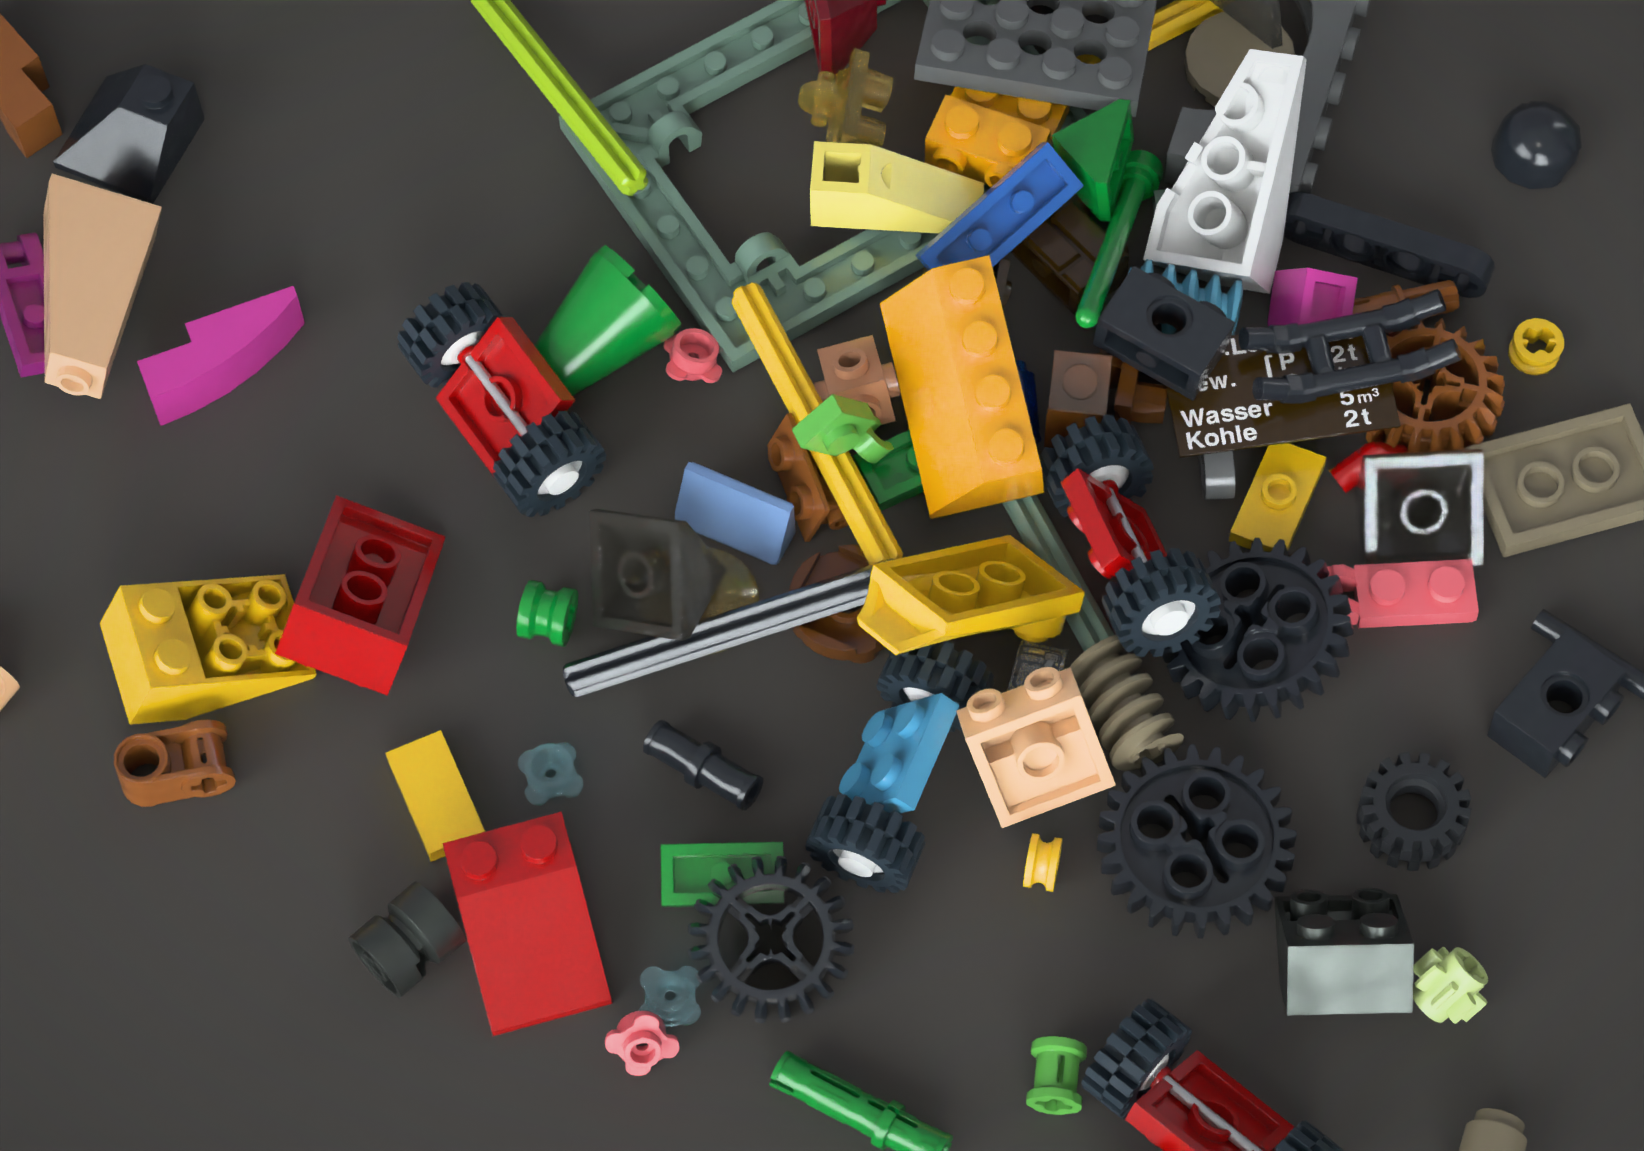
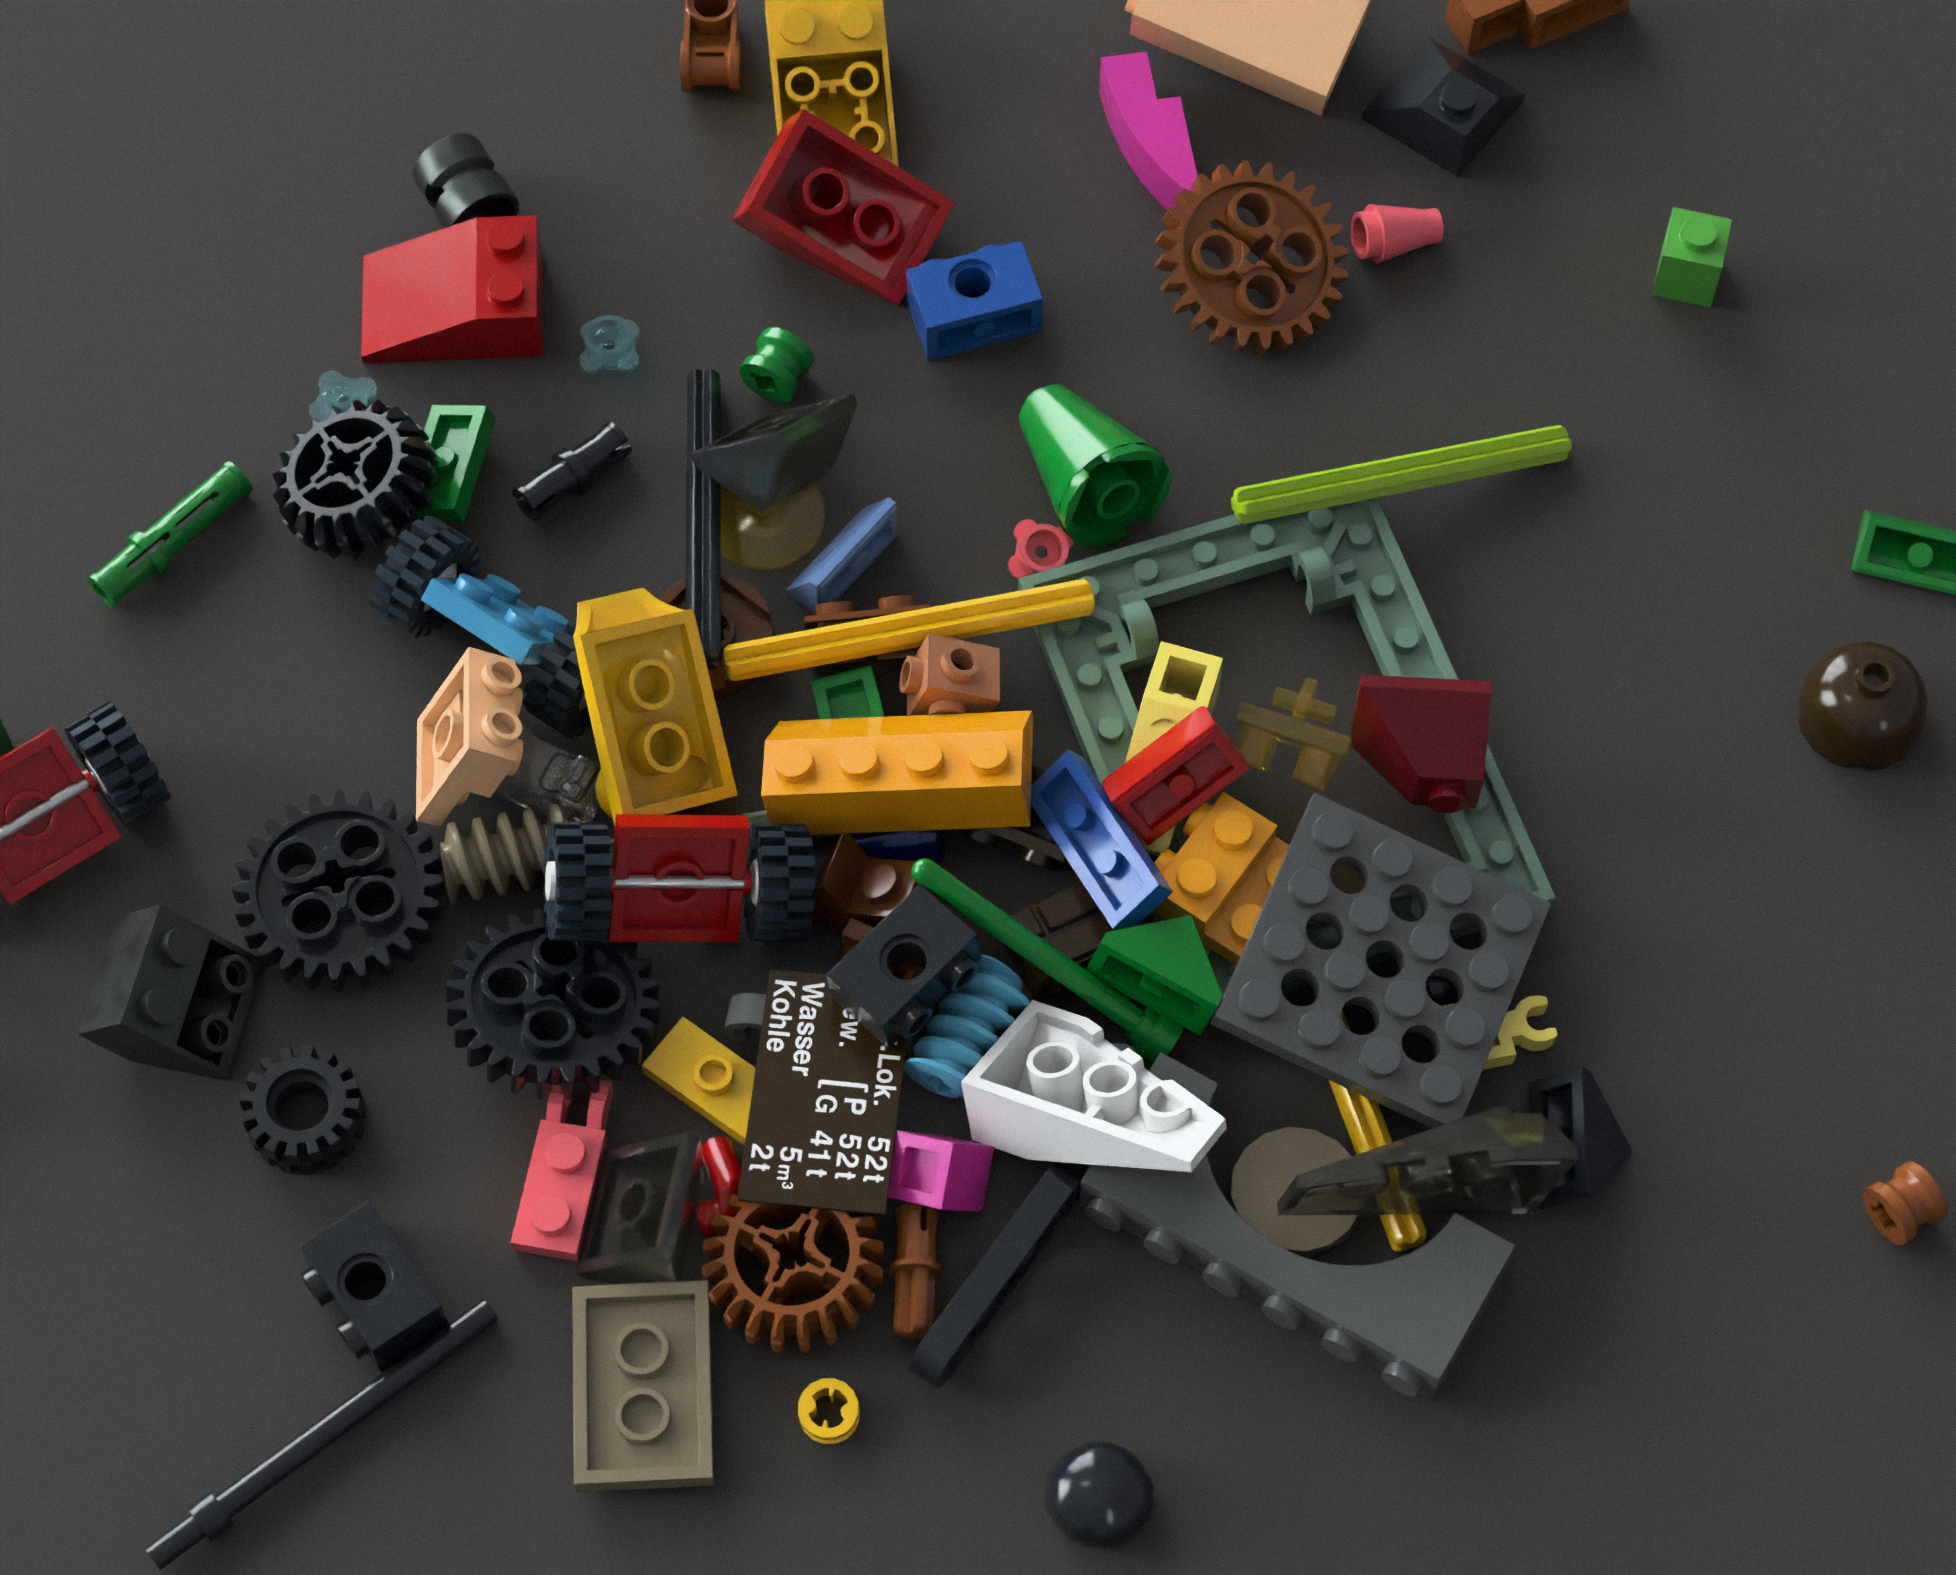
camera: 100 degrees right, 0 degrees up
(288, 148) = (1391, 231): none -> coral cone
(378, 262) = (1283, 221): none -> dark orange gear
(428, 434) = (953, 323): none -> blue brick
(434, 792) = (618, 249): yellow tile -> none
(502, 398) = (1104, 338): plate -> none
(641, 1028) = (302, 364): coral plate -> none
(840, 426) = (871, 620): bright green plate -> none
(925, 168) = (1175, 775): none -> red slope
(1042, 862) = (365, 744): yellow bush -> none
(1056, 1075) = (144, 704): bright green bush -> none
(1372, 328) = (807, 1131): black piece -> none
(1449, 985) = (96, 1081): yellowish green gear -> none

